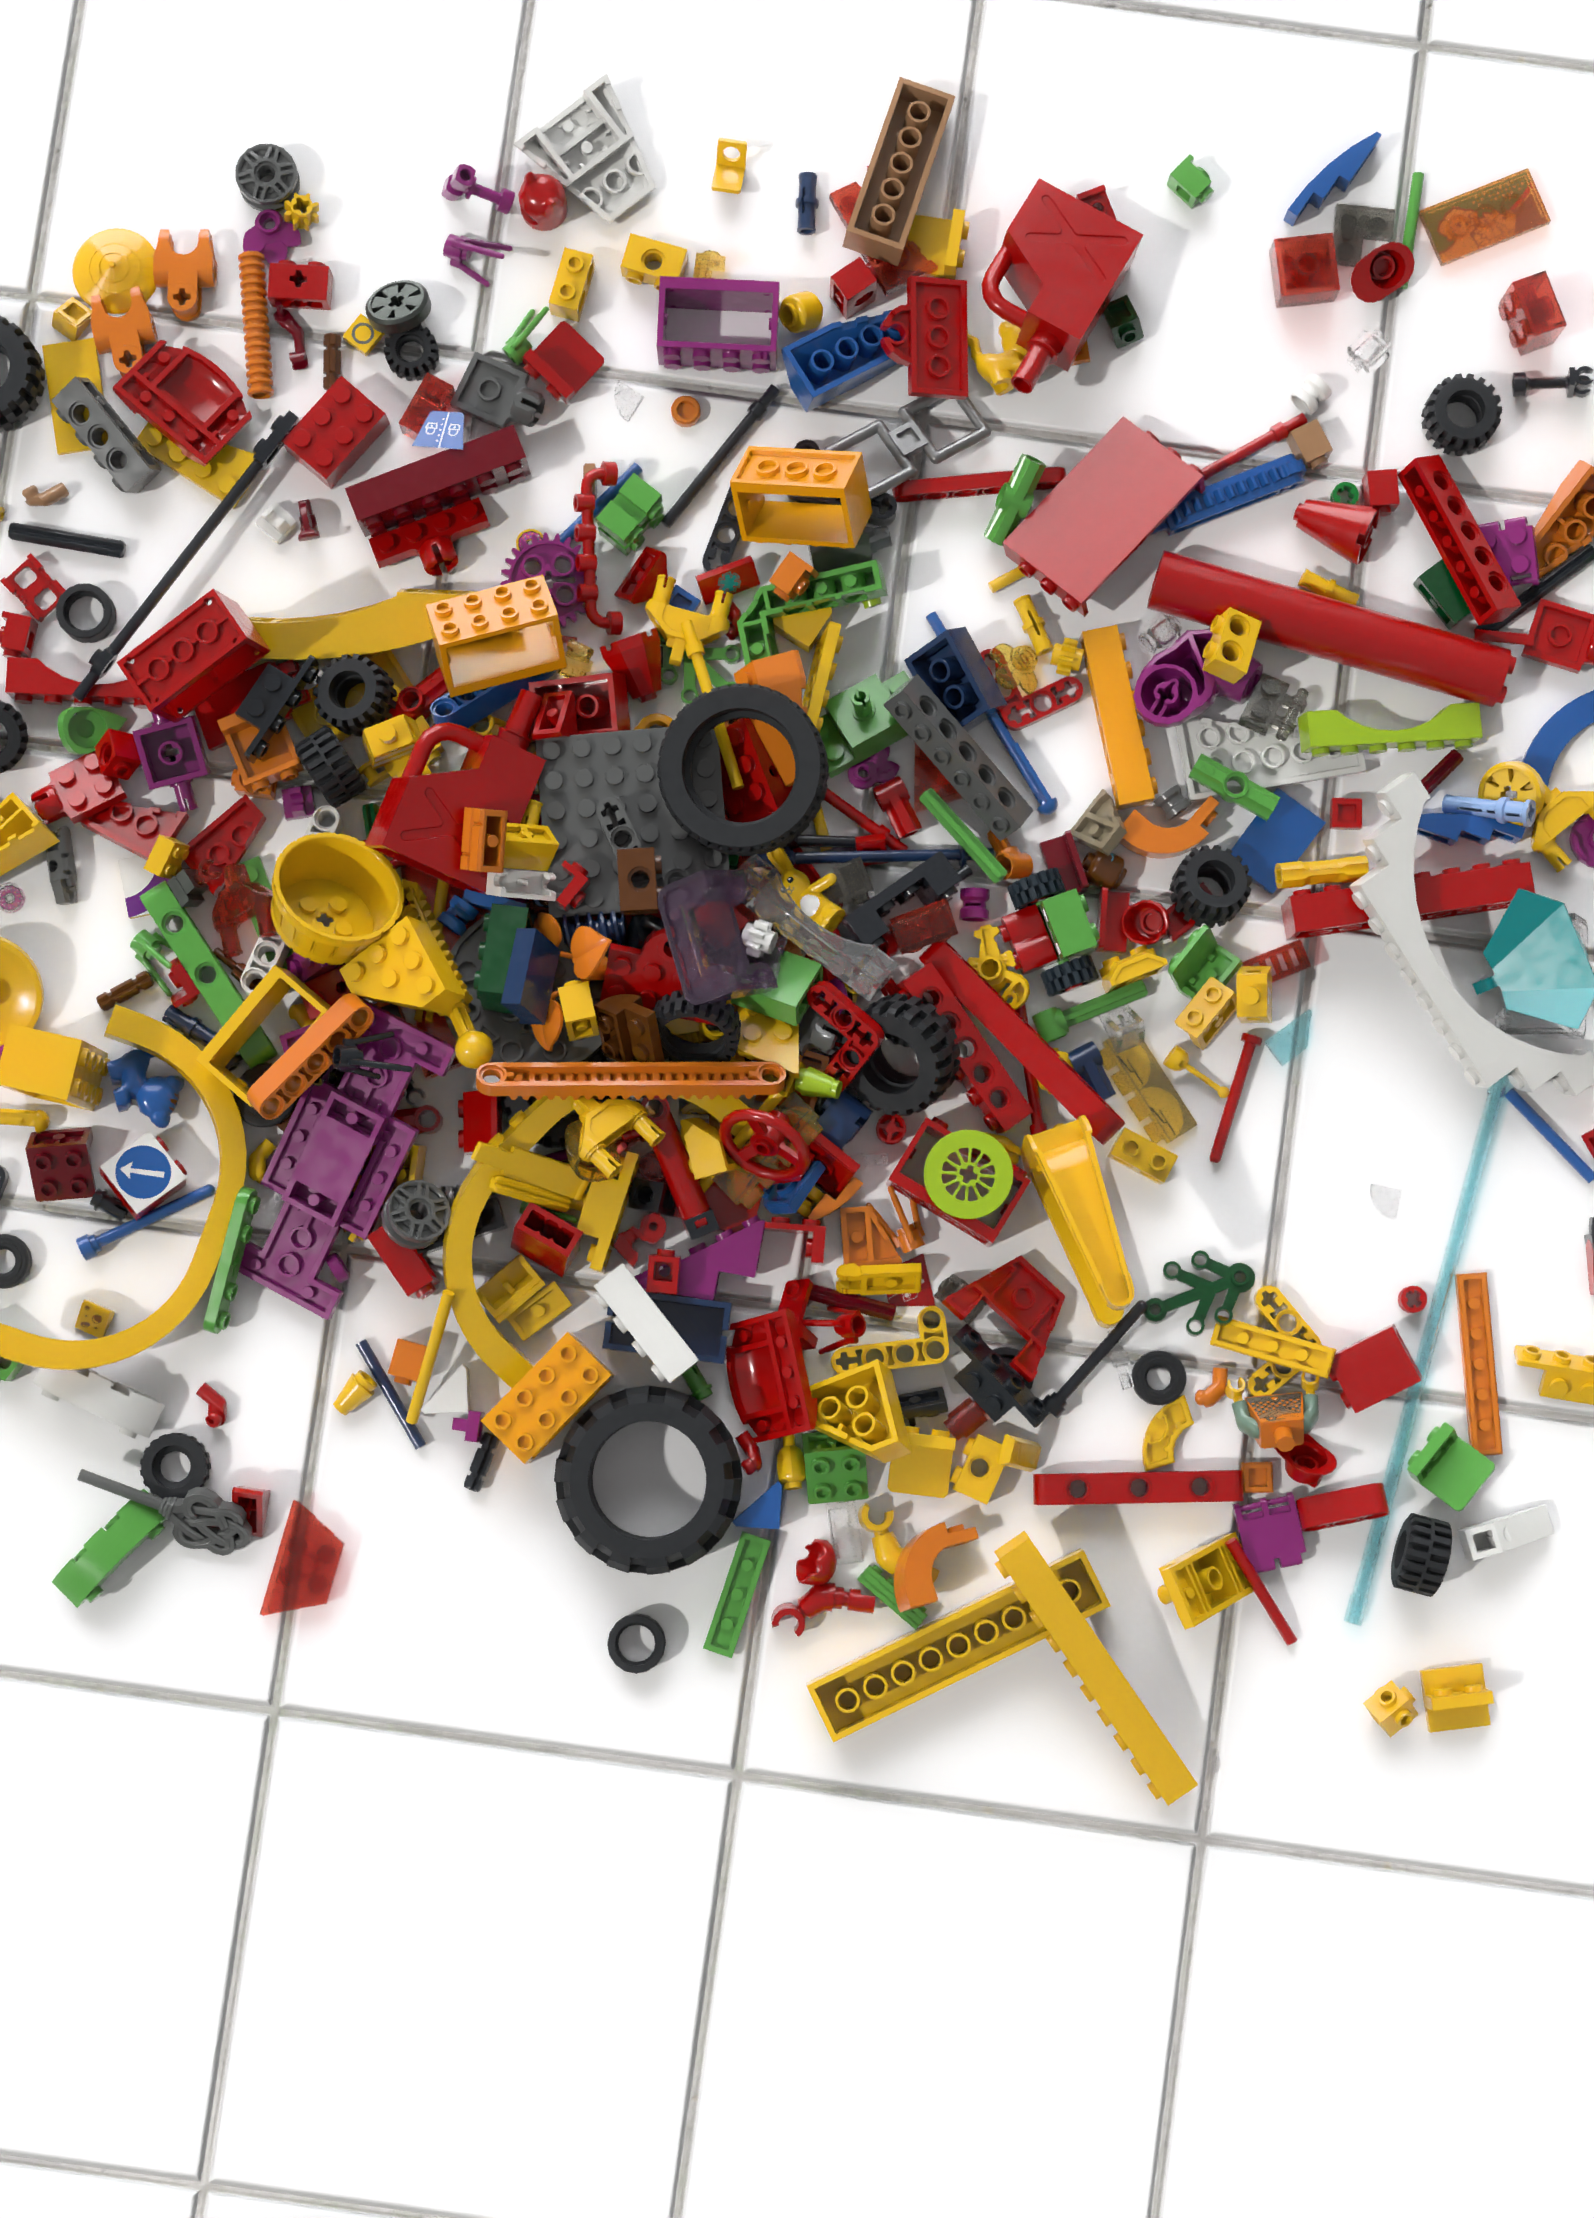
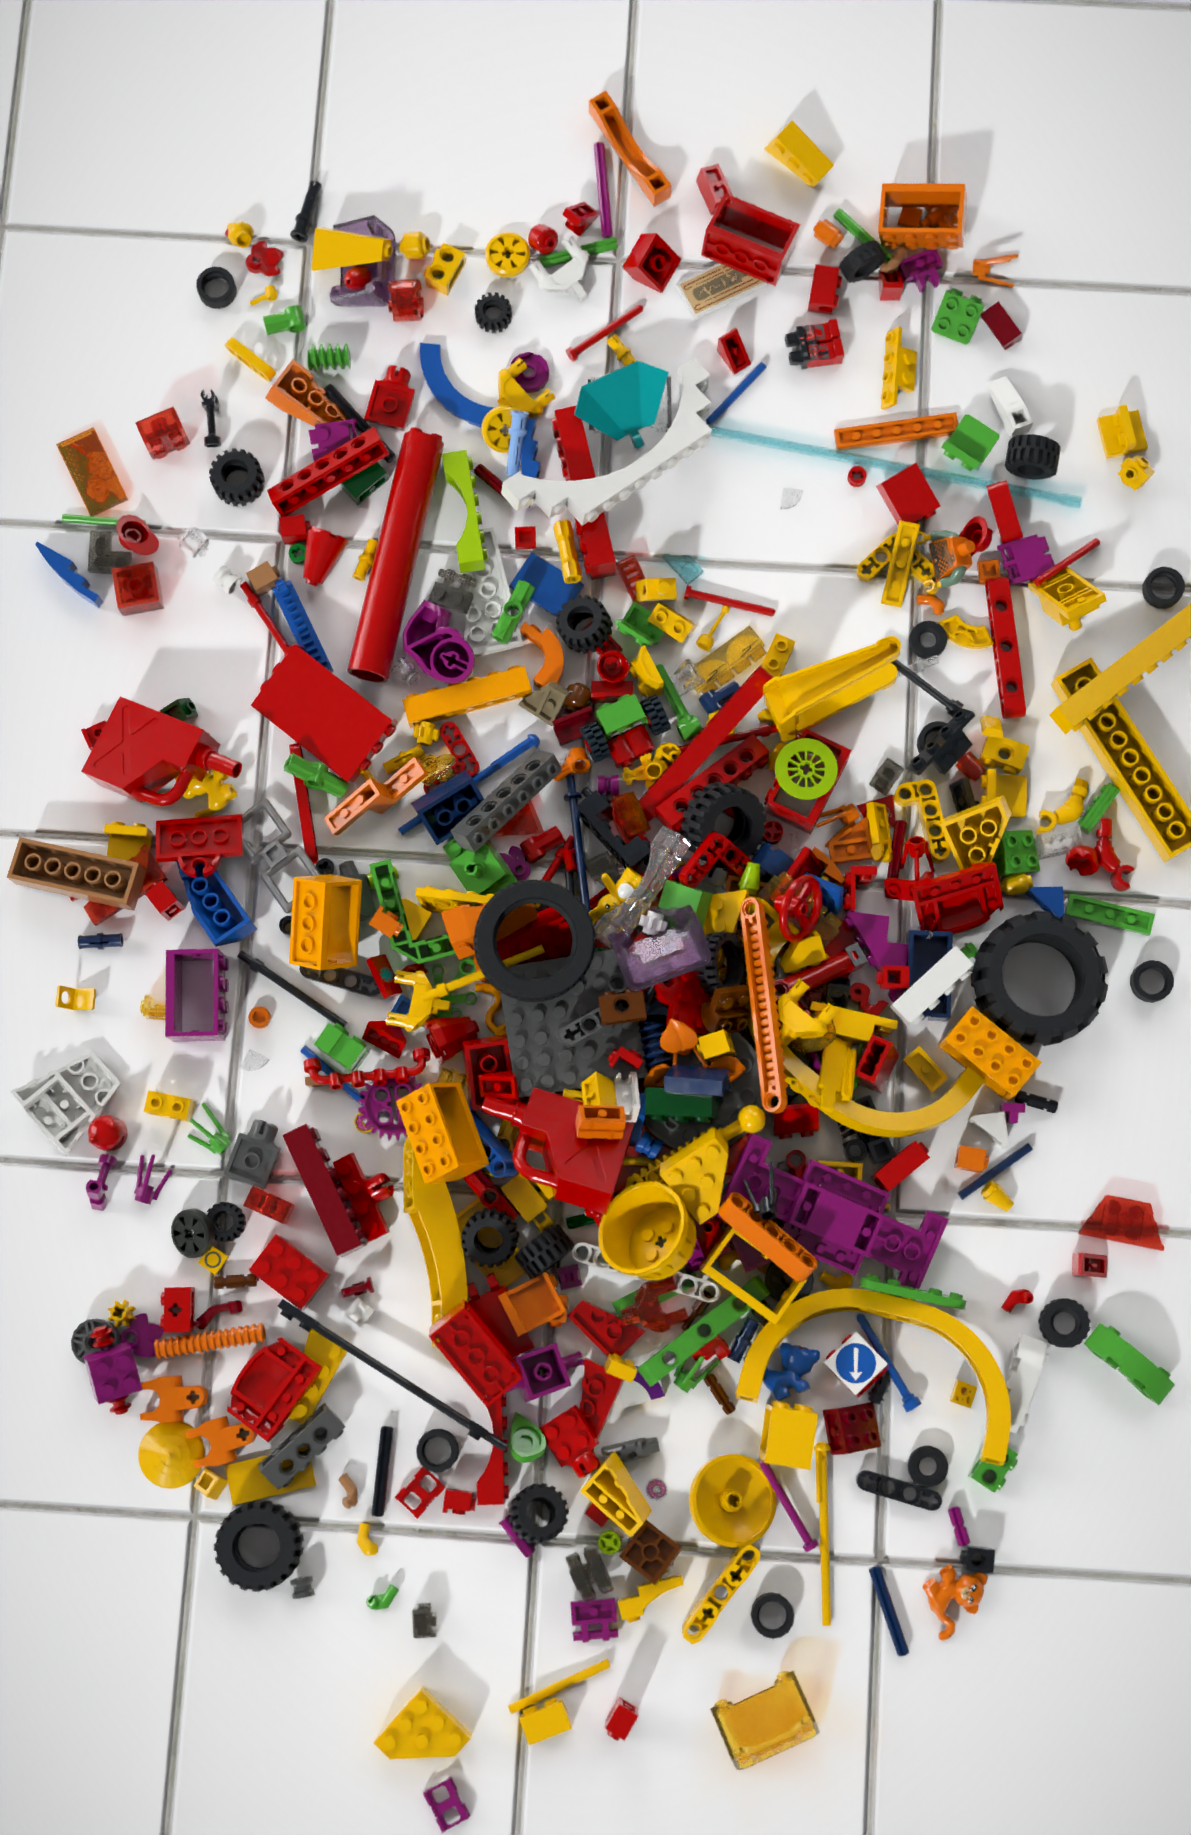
camera: 90 degrees left, 5 degrees down
(117, 754) = (545, 1413): red brick -> none
(192, 883) = (638, 1348): pearl dark grey piece -> none
(198, 1519) = (1103, 1301): dark grey piece -> none
(223, 192) = (112, 1371): none -> magenta brick
(271, 701) = (501, 1298): black bracket -> none
(338, 1267) = (909, 1216): magenta tile -> none
(390, 740) = (524, 1206): yellow torso -> none
(424, 1199) = (870, 1143): dark grey wheel -> none
(430, 1356) = (951, 1134): yellow axle -> none
(442, 431) = (289, 1188): sticker -> none
(509, 1288) = (911, 1089): yellow hinge -> none
(563, 362) = (228, 1108): red bracket -> none
(645, 250) = (141, 1058): yellow brick -> none
(752, 1451) = (1009, 911): red arm -> none
(801, 312) = (183, 936): yellow head -> none
(914, 1566) = (1073, 789): orange arch -> none
(963, 835) = (561, 794): bright green axle -> none
(979, 580) = (375, 796): none -> orange bracket
(1022, 1300) = (885, 732): red wing -> none
(1172, 802) = (525, 655): dark grey wheel -> none
(1190, 182) = (75, 671): bright green brick -> none
(1203, 1291) = (865, 611): dark green plant -> none
(1236, 647) = (415, 616): yellow brick -> none
(1236, 1735) = (1169, 573): none -> black tyre
(1504, 637) = (393, 440): red piece -> none

